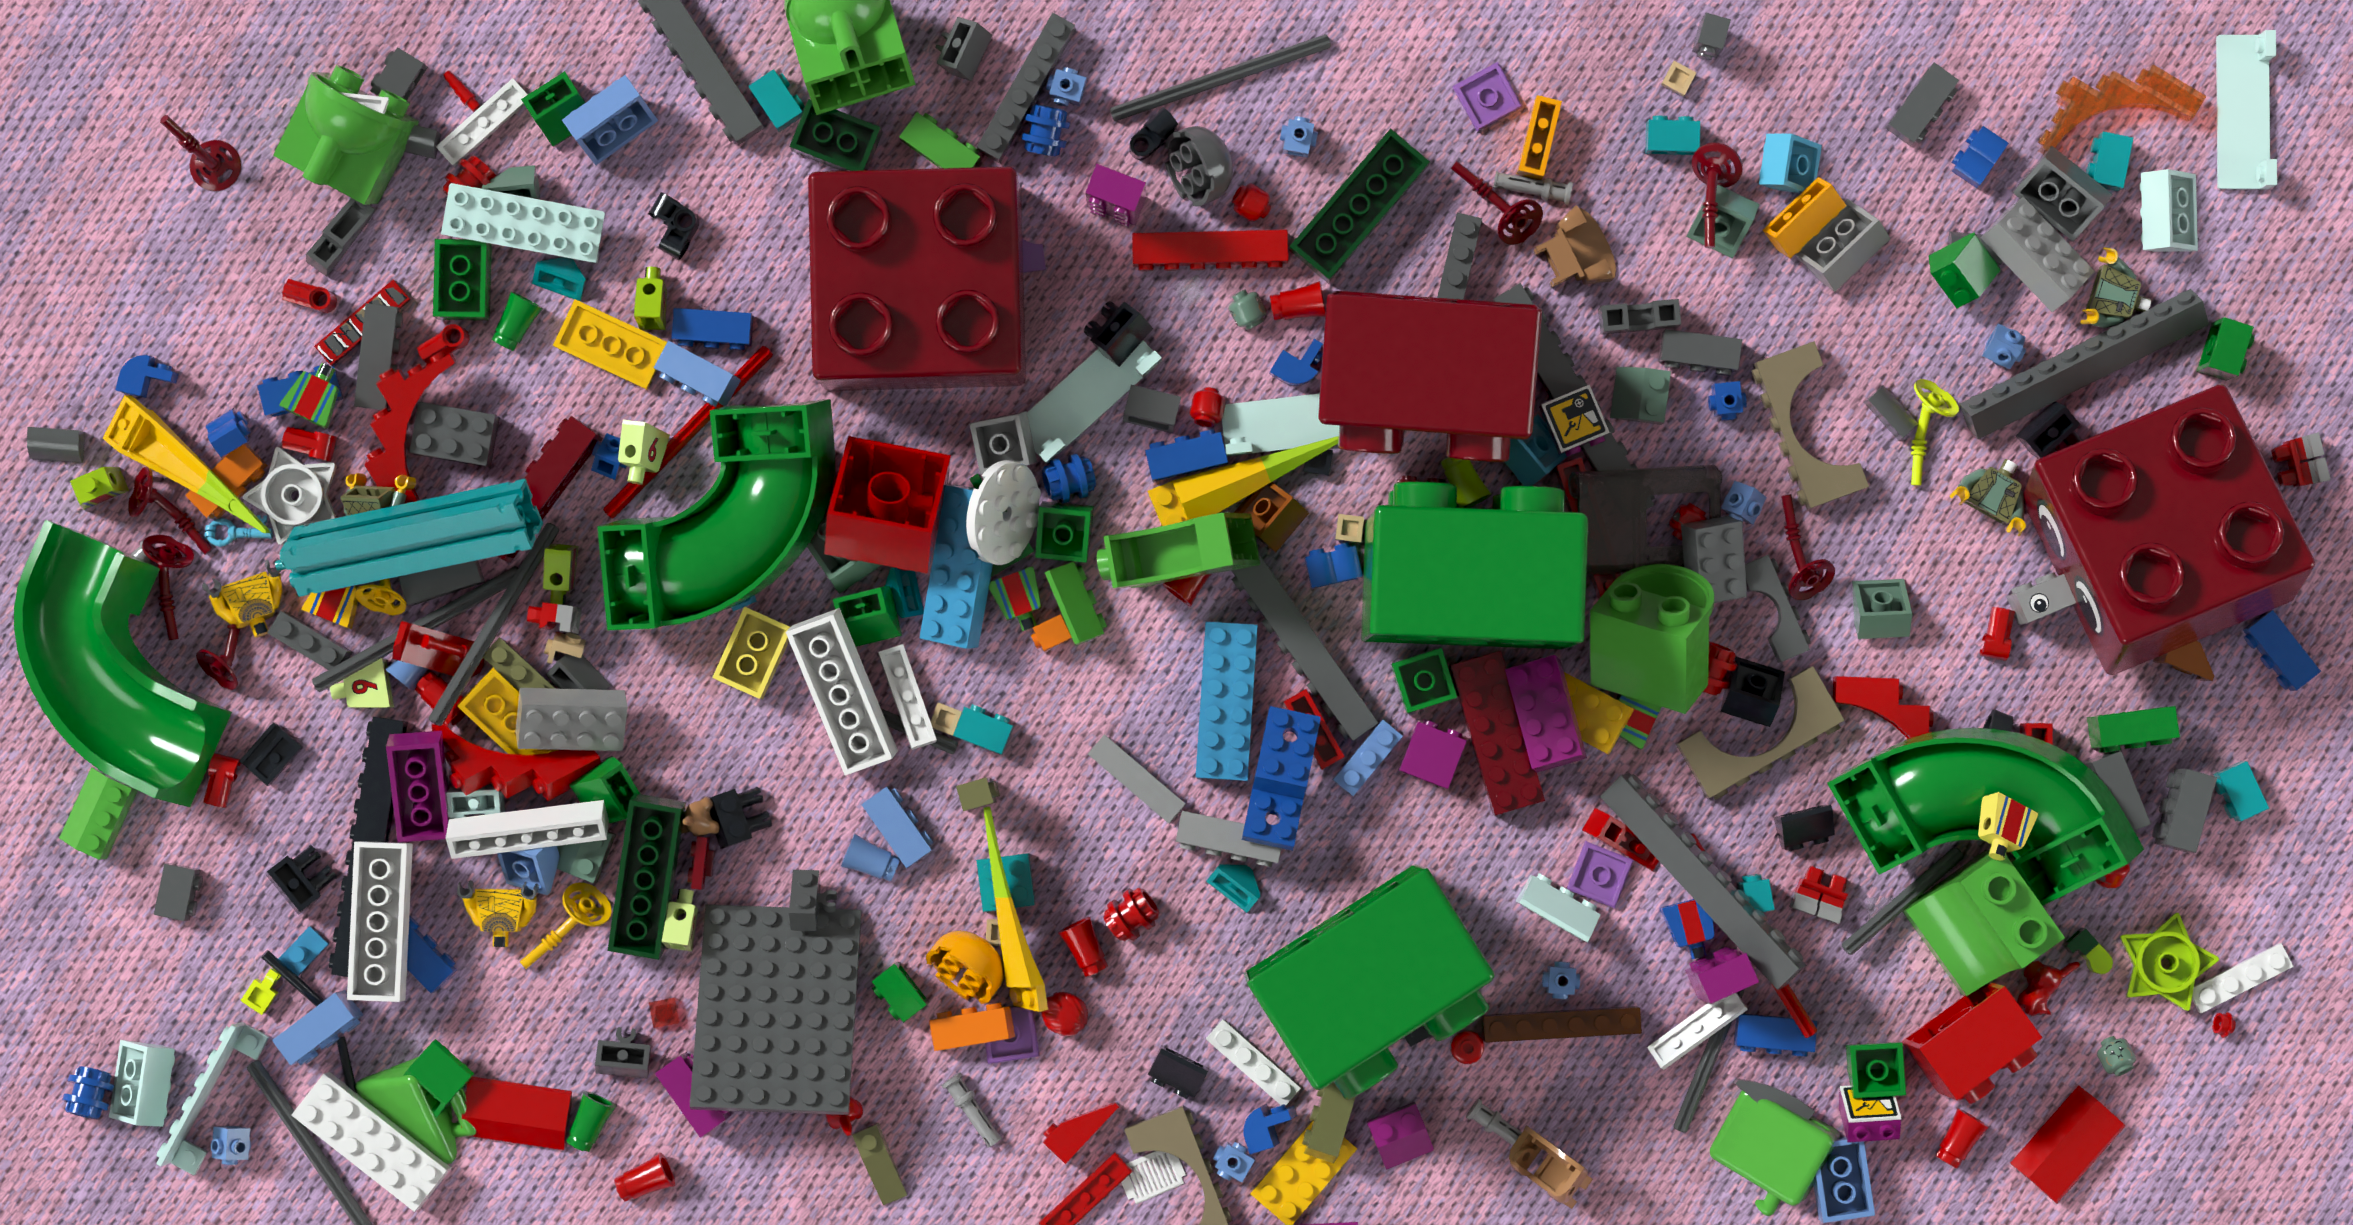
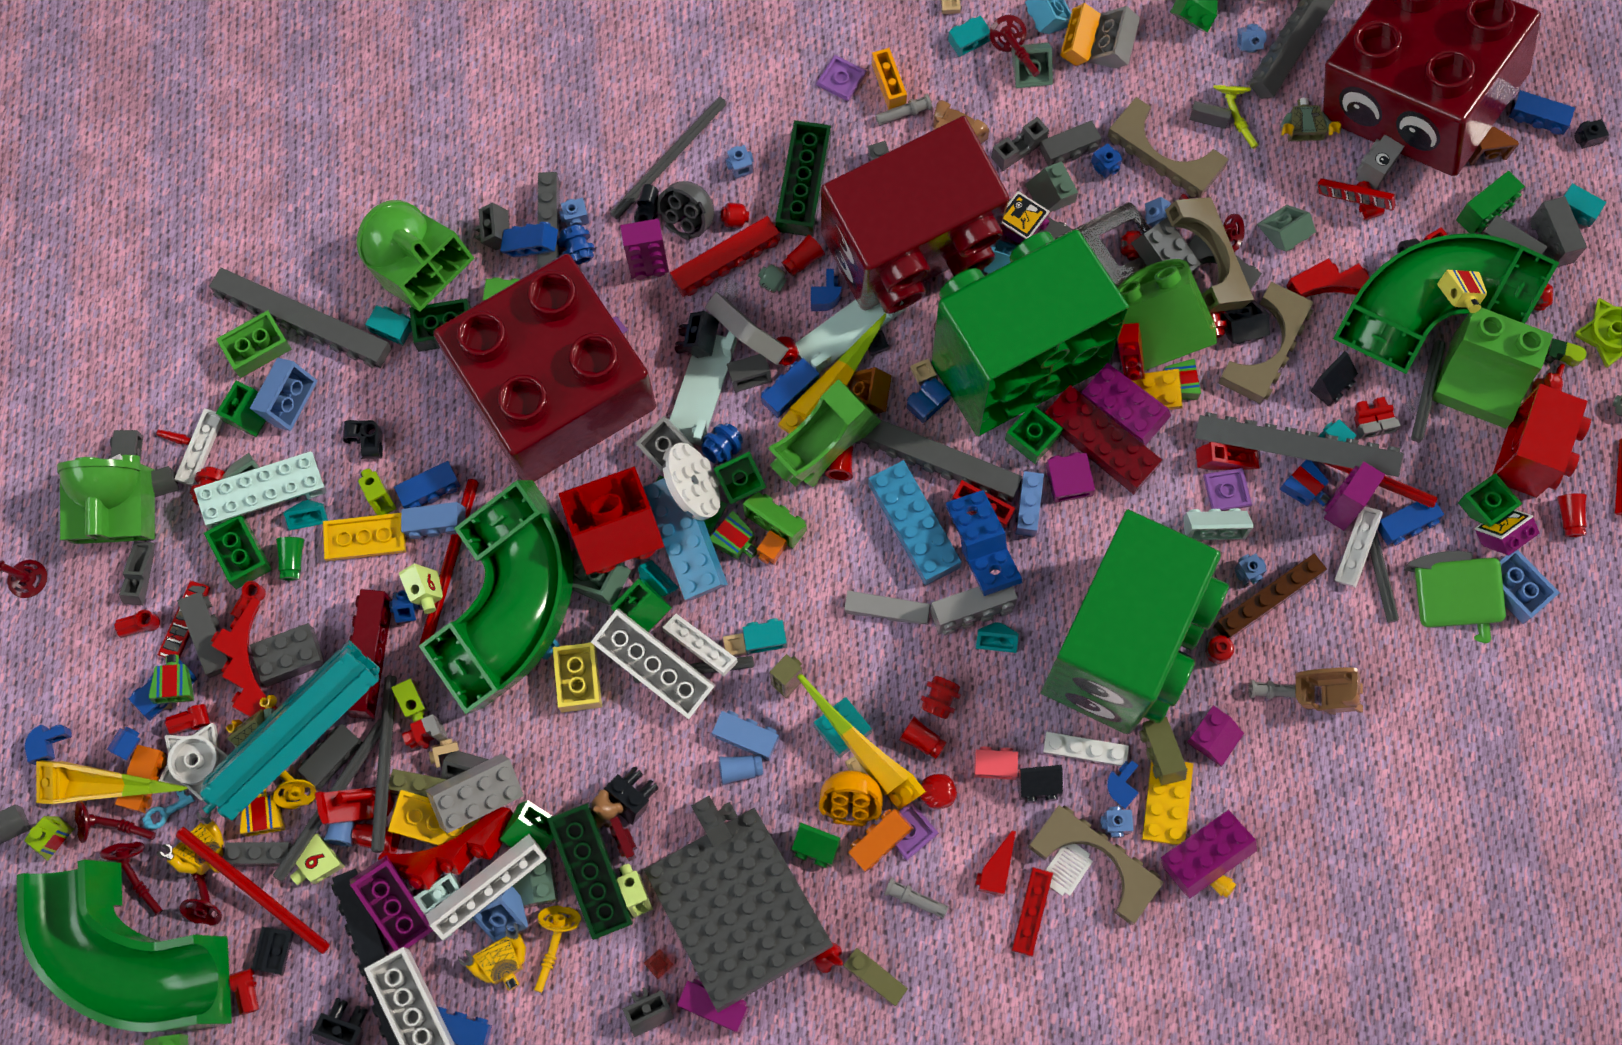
camera: 30 degrees left, 15 degrees down
(282, 679) = (252, 890): none -> red axle
(609, 32) = (253, 344): none -> bright green slope
(992, 97) = (529, 240): none -> blue brick
(1146, 1021) = (996, 763): none -> coral brick
(1168, 359) = (745, 329): none -> light grey beam
(1511, 215) = (901, 132): dark red dish -> none
(1586, 661) = (1131, 351): none -> red slope
(1781, 550) = (1202, 219): none -> dark tan arch
(1985, 622) = (1356, 194): none -> red tile
(2049, 430) = (1311, 68): black brick -> none
(2319, 711) = (1591, 133): none -> black brick

